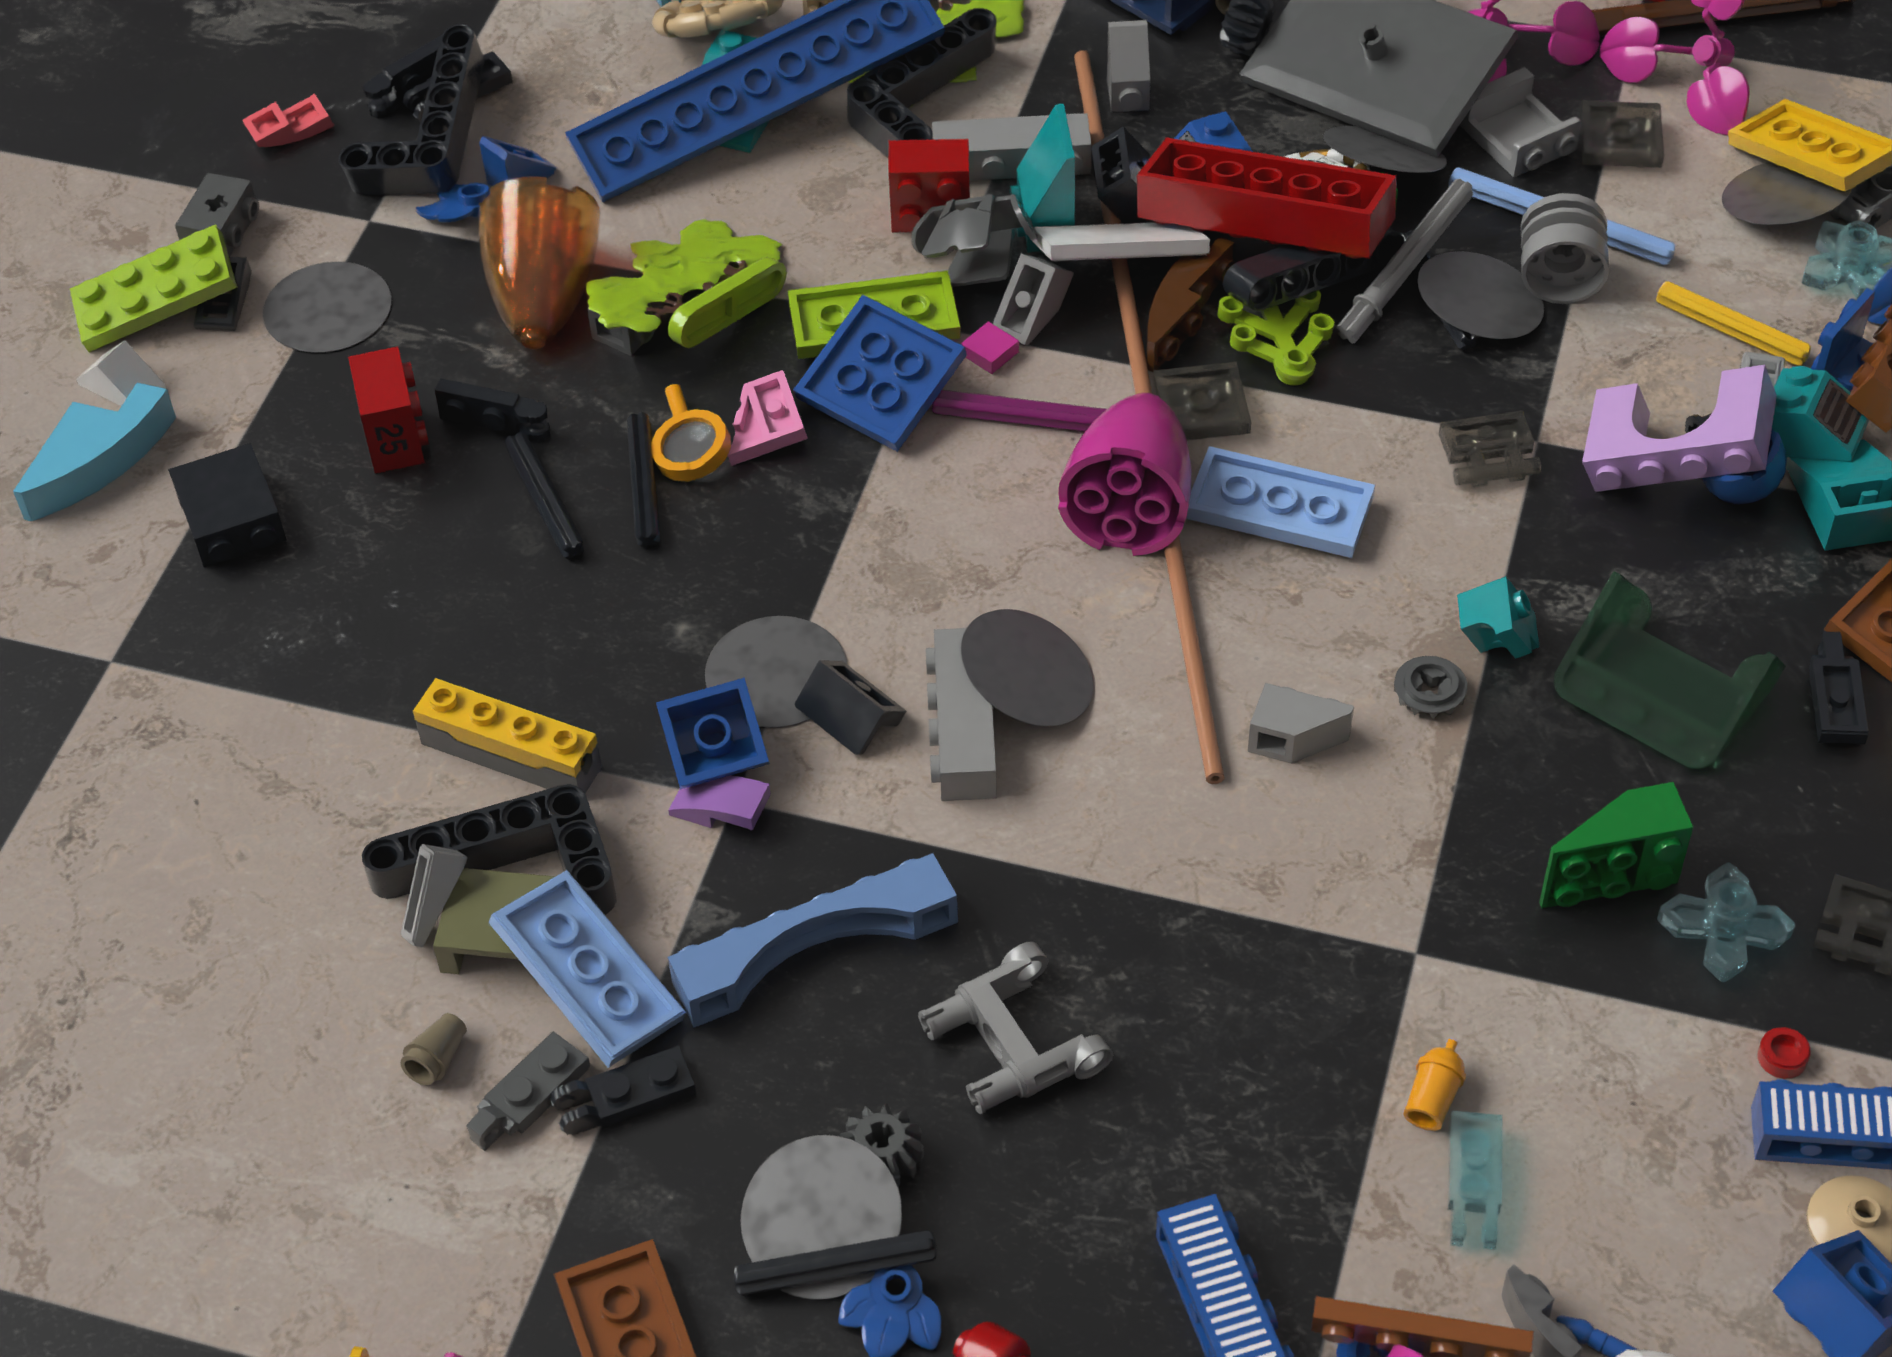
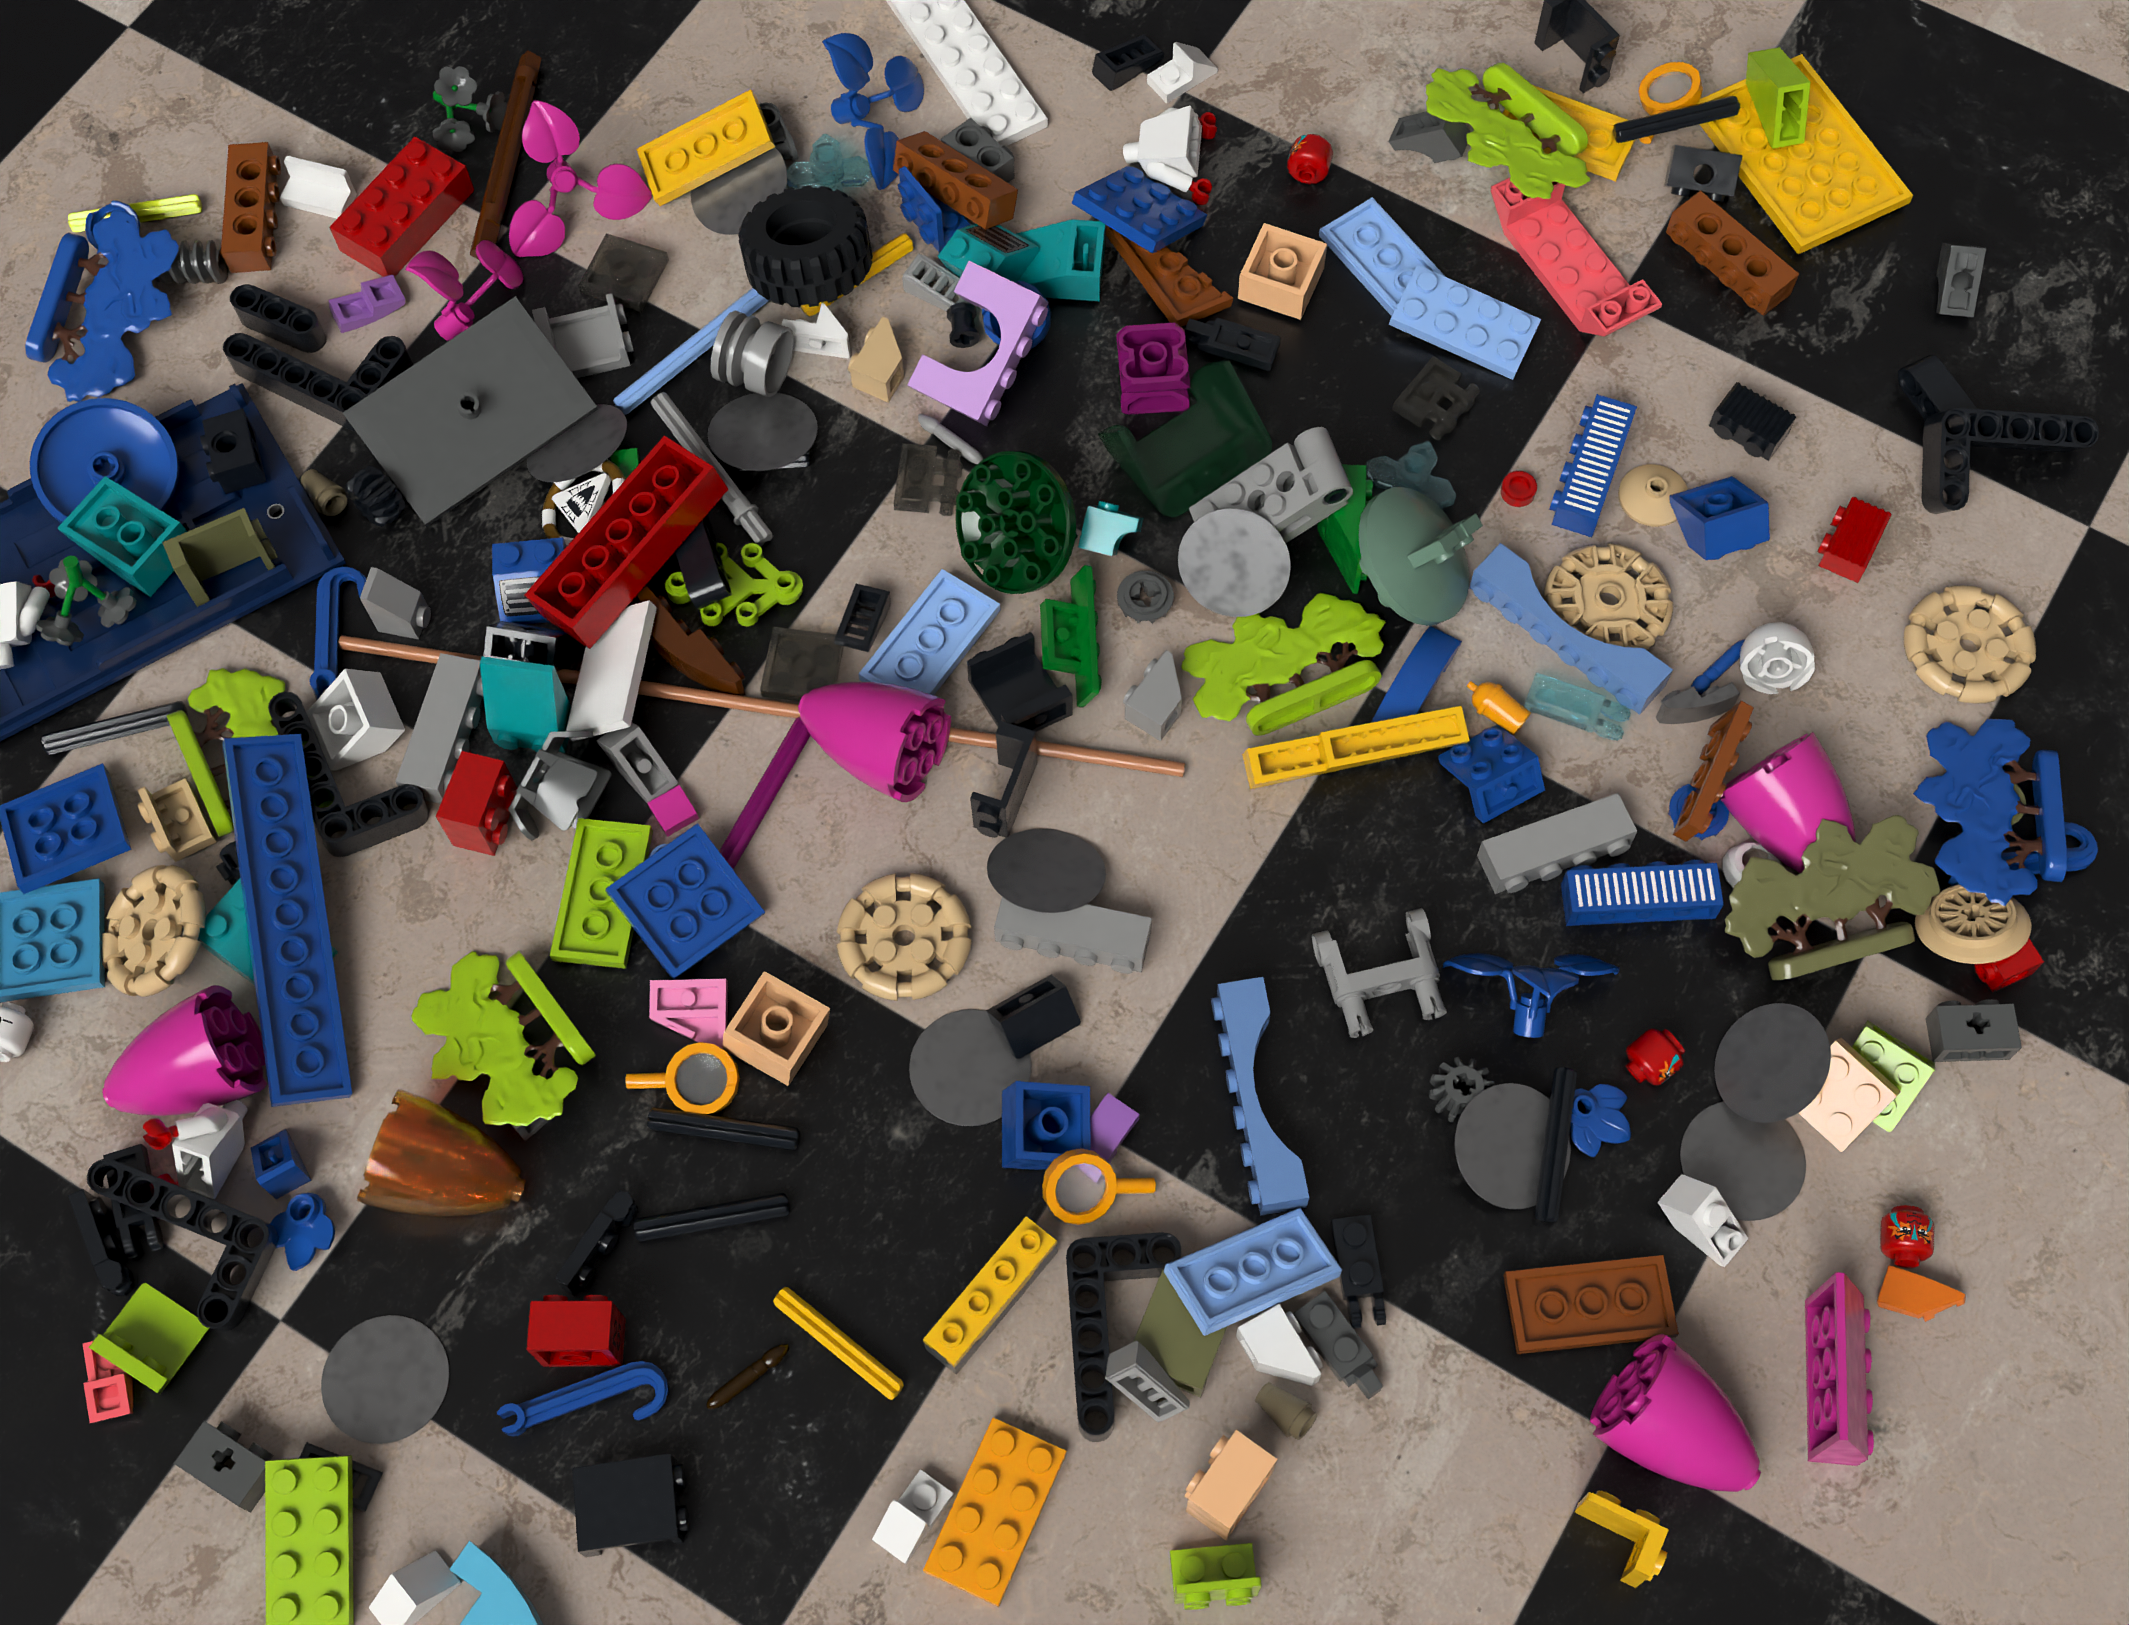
camera: 75 degrees left, 15 degrees up
(226, 1018) = (1214, 1575): none -> lime bracket
(257, 740) = (912, 1516): none -> white slope
(274, 809) = (995, 1512): none -> light orange plate
(316, 128) = (150, 1338): none -> lime bracket
(326, 996) = (1230, 1484): none -> light nougat brick
(337, 446) = (589, 1392): none -> blue piece
(402, 580) = (746, 1377): none -> dark brown piece
(430, 631) = (838, 1343): none -> yellow axle
(506, 1021) = (1276, 1348): none -> white slope
(512, 96) = (203, 1147): none -> white torso
(597, 53) = (189, 1058): none -> dark pink cylinder
(651, 790) = (1083, 1186): none -> light orange piece
(758, 479) = (776, 1028): none -> light nougat brick
(914, 550) = (894, 917): none -> tan plate
(999, 84) = (355, 718): none -> white slope
(1015, 1141) = (1532, 1009): none -> blue plant
(1029, 52) = (328, 625): none -> blue piece
(1118, 606) = (1016, 751): none -> black panel
(1252, 591) = (1017, 686): none -> black panel
(1261, 1191) = (1557, 844): none -> light grey brick
(1300, 438) = (867, 597): none -> black slope
(1310, 936) = (1354, 746): none -> yellow slope
(1334, 1099) = (1495, 770): none -> blue bracket
(1340, 619) = (1070, 636): none -> green bracket
(1406, 830) = (1274, 654): none -> lime plant
(1427, 982) = (1418, 675): none -> blue slope
(1459, 525) = (1015, 522): none -> dark green bracket
(1500, 739) = (1234, 562): none -> flat silver sticker
(1553, 1224) = (1625, 672): none -> medium blue arch
(1565, 440) = (933, 426): none -> light grey piece
(1594, 745) = (1288, 487): none -> light grey hinge
(1597, 923) = (1415, 555): none -> sand green bracket
(1624, 361) = (878, 364): none -> tan slope
(1630, 309) = (823, 338): none -> white slope
(1650, 1214) = (1604, 619): none -> tan plate
(1725, 249) = (805, 246): none -> black tyre
(1743, 607) = (1153, 368): none -> magenta piece

